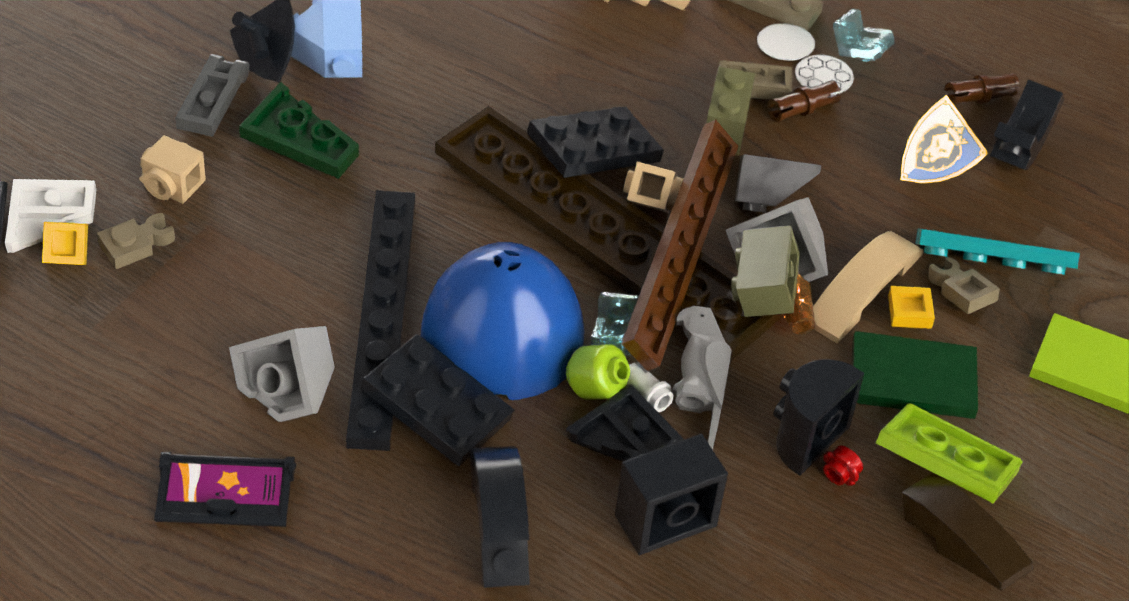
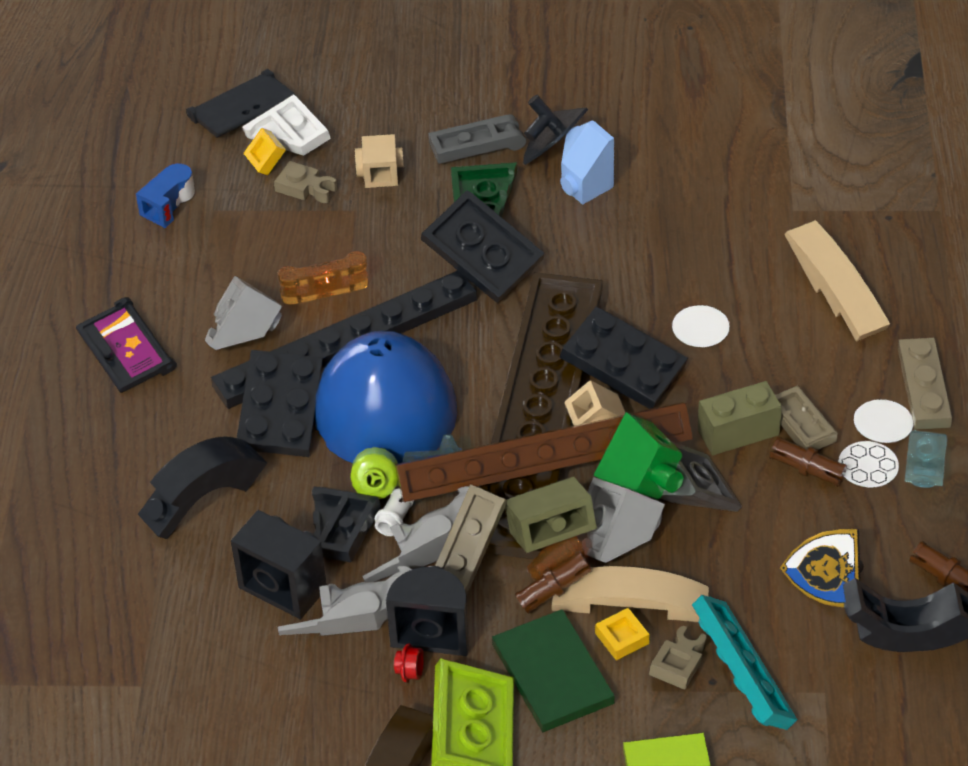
camera: 65 degrees right, 0 degrees up
(44, 360) = (165, 194): none -> blue leg
(294, 287) = (323, 279): none -> clear orange plate
(374, 154) = (482, 246): none -> black plate
(584, 84) = (700, 326): none -> white sticker
(751, 345) = (471, 534): none -> dark tan plate
(751, 461) = (348, 609): none -> light grey animal
(758, 180) = (641, 459): none -> green torso
(829, 316) = (553, 582): none -> reddish brown pin

